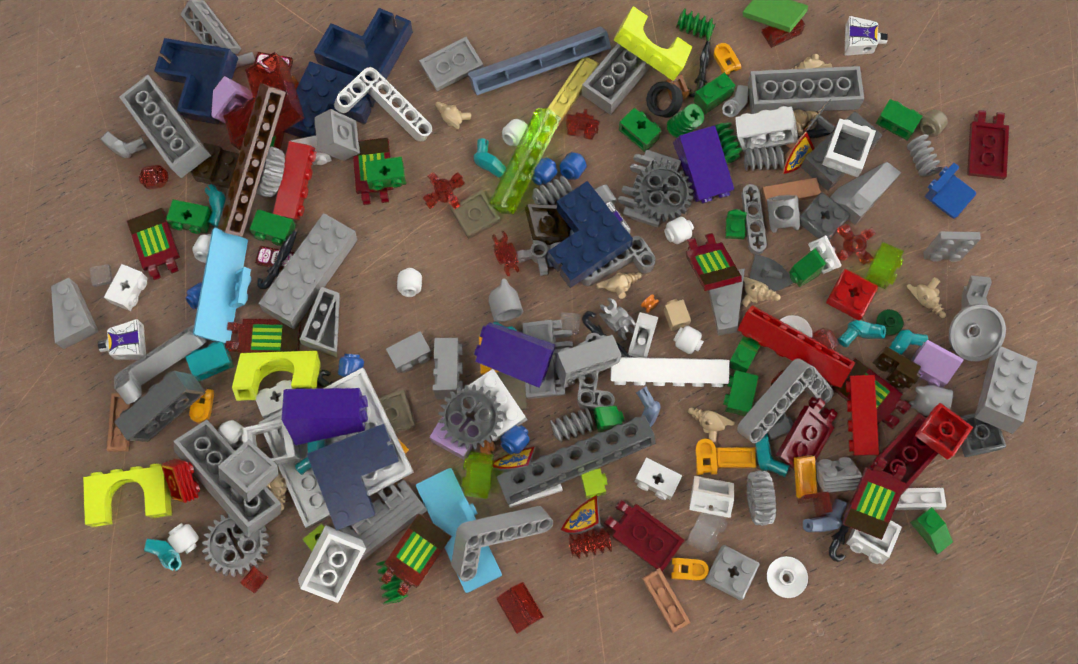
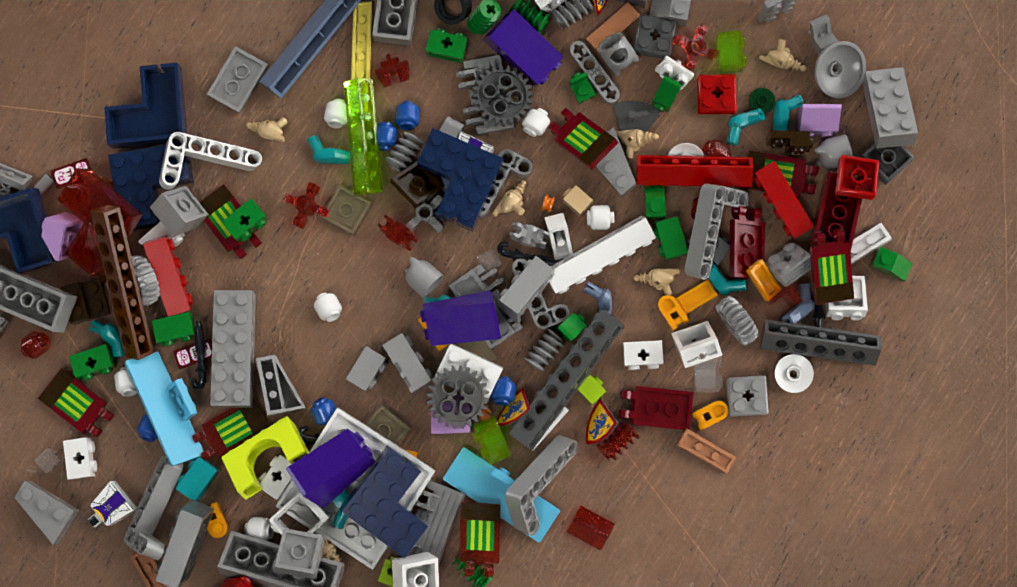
camera: 25 degrees left, 10 degrees up
(828, 563) = (820, 342): none -> dark grey brick

